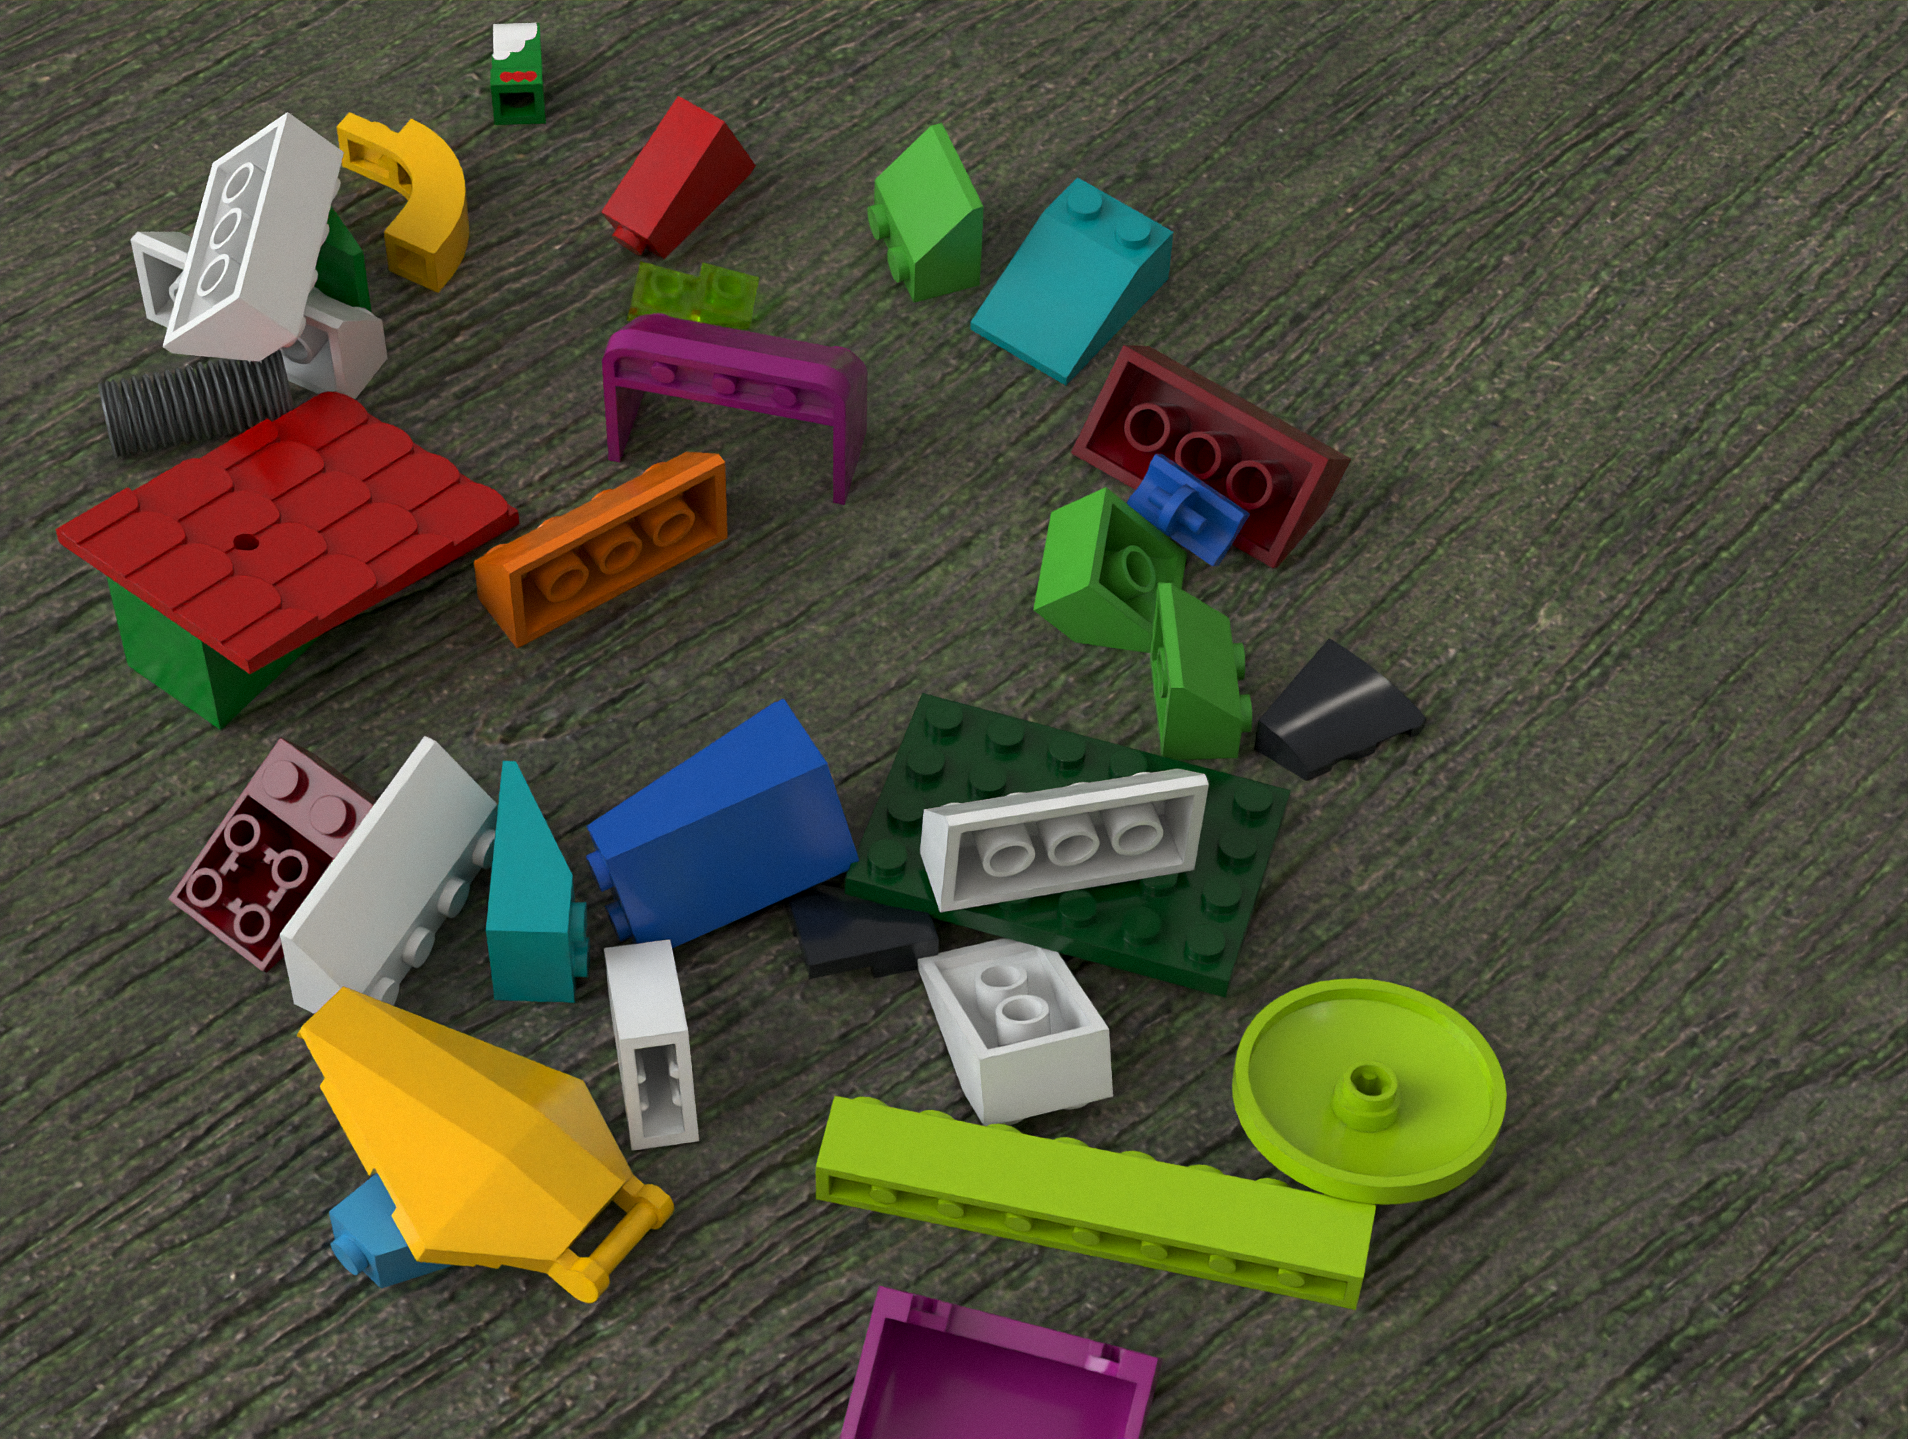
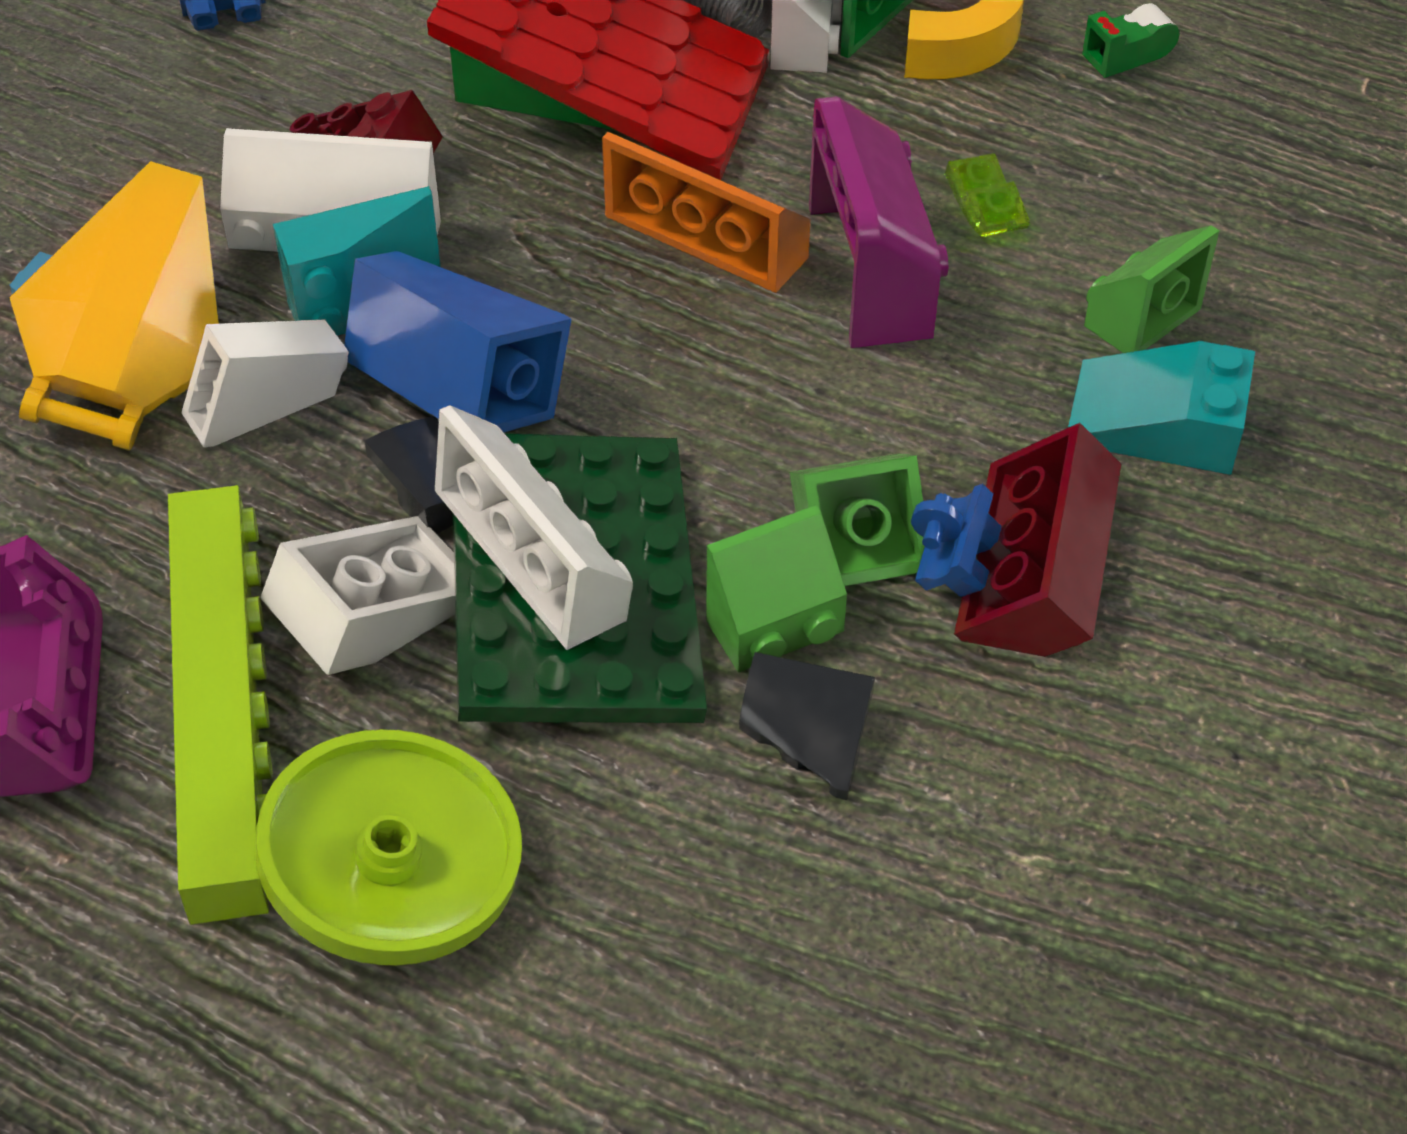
camera: 70 degrees right, 5 degrees down
(676, 180) = (1084, 142): red slope -> none

